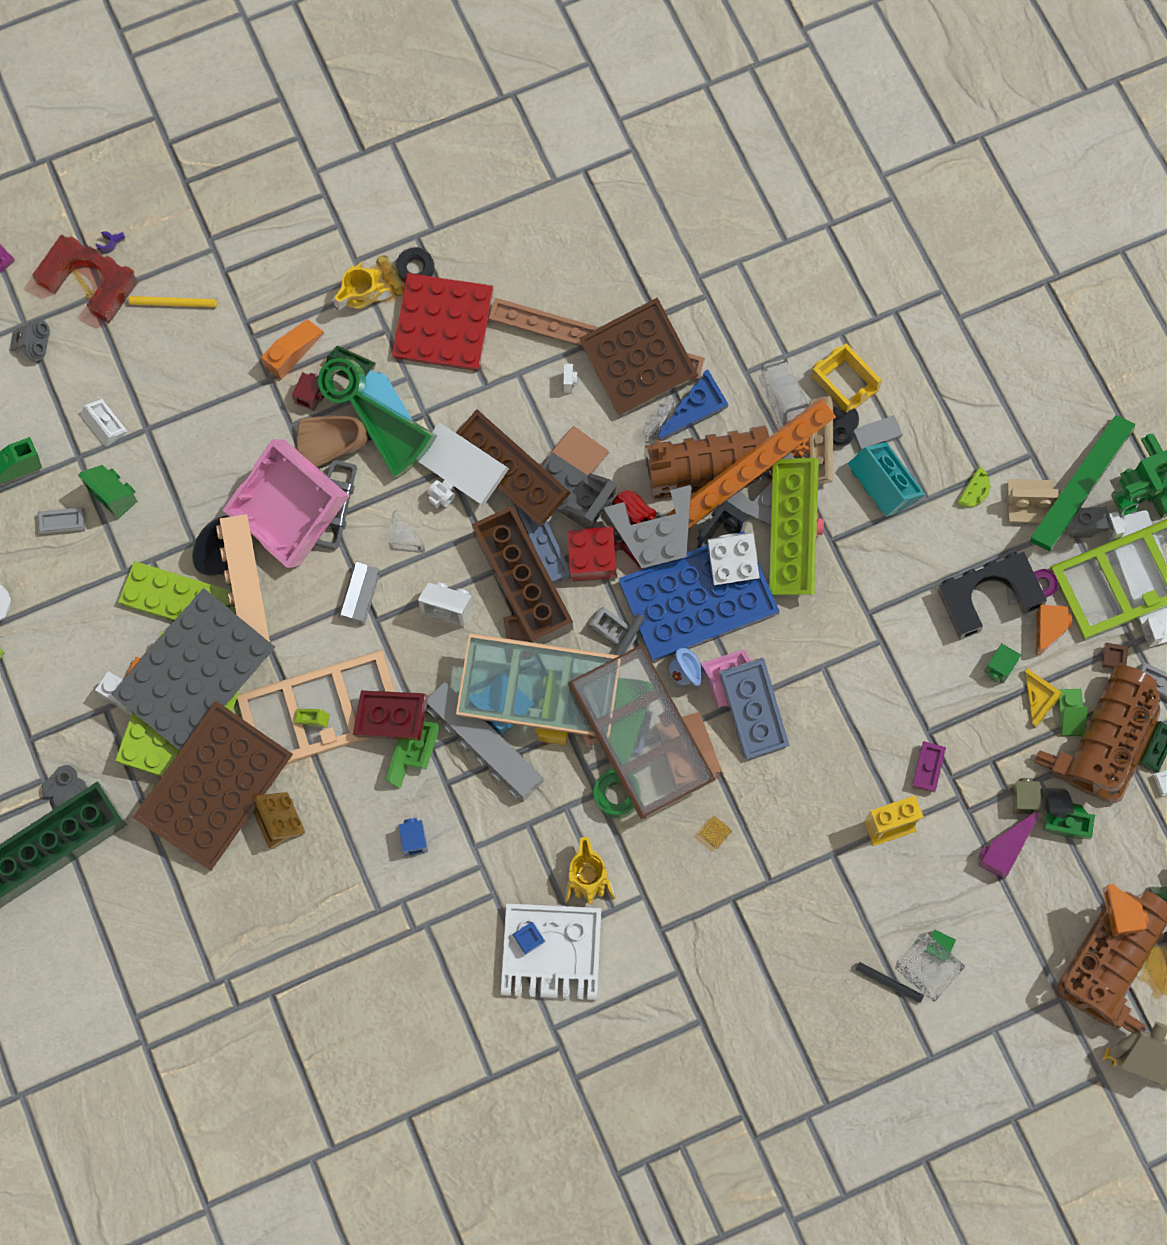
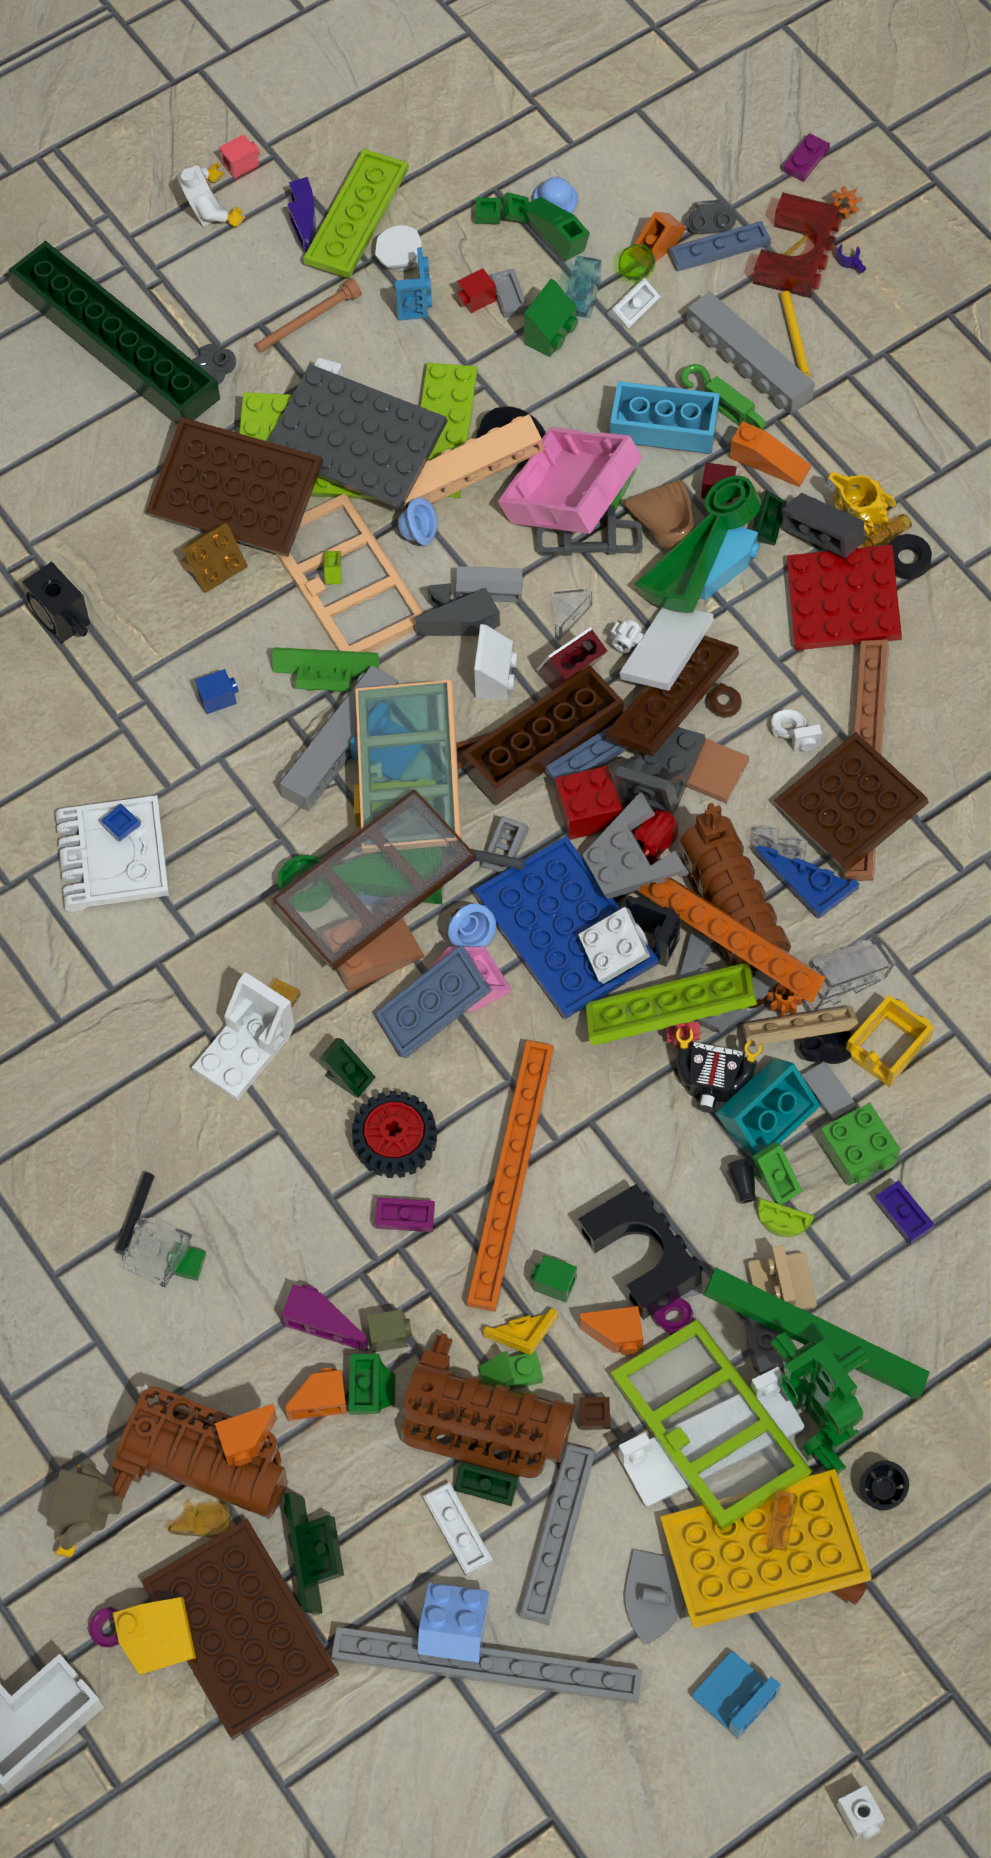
camera: 80 degrees right, 10 degrees down
(20, 655) = (348, 291): none -> nougat piece
(45, 387) = (661, 233): none -> orange slope
(49, 592) = (414, 295): none -> dark azure bracket
(52, 229) = (853, 200): none -> orange gear
(54, 546) = (476, 291): none -> red brick
(64, 341) = (719, 246): none -> sand blue tile
(66, 407) = (637, 262): none -> clear neon green hair
(78, 453) = (585, 284): none -> clear light blue brick
(185, 339) = (750, 353): none -> light grey brick
(225, 369) = (731, 402): none -> bright green piece
(234, 418) = (665, 416): none -> medium azure brick
(286, 639) = (418, 521): none -> light blue hat
(308, 961) = (56, 603): none -> black piece
(366, 634) = (439, 594): none -> dark grey slope
(376, 319) = (823, 525): none -> dark grey brick
(389, 615) = (460, 616): none -> dark grey slope
(390, 715) = (346, 634): dark red plate -> none
(460, 538) = (572, 658): none -> dark red piece
(523, 439) = (720, 709): none -> reddish brown piece
(546, 382) = (785, 716): none -> white piece
(587, 874) = (204, 868): yellow piece -> none
(755, 867) = (254, 1032): none -> white bracket
(795, 789) = (346, 1068): none -> dark green slope
(849, 509) = (713, 1071): none -> torso
(875, 766) = (408, 1148): none -> wheel
(884, 824) = (324, 1175): yellow window -> none
(908, 679) = (510, 1177): none -> orange plate
(931, 419) = (859, 1144): none -> bright green brick
(941, 510) = (743, 1179): none -> black cone
(943, 485) = (776, 1174): none -> bright green slope
(987, 402) = (904, 1212): none -> dark purple plate
(1058, 801) = (385, 1360): black slope -> none
(1073, 858) = (319, 1396): none -> orange slope

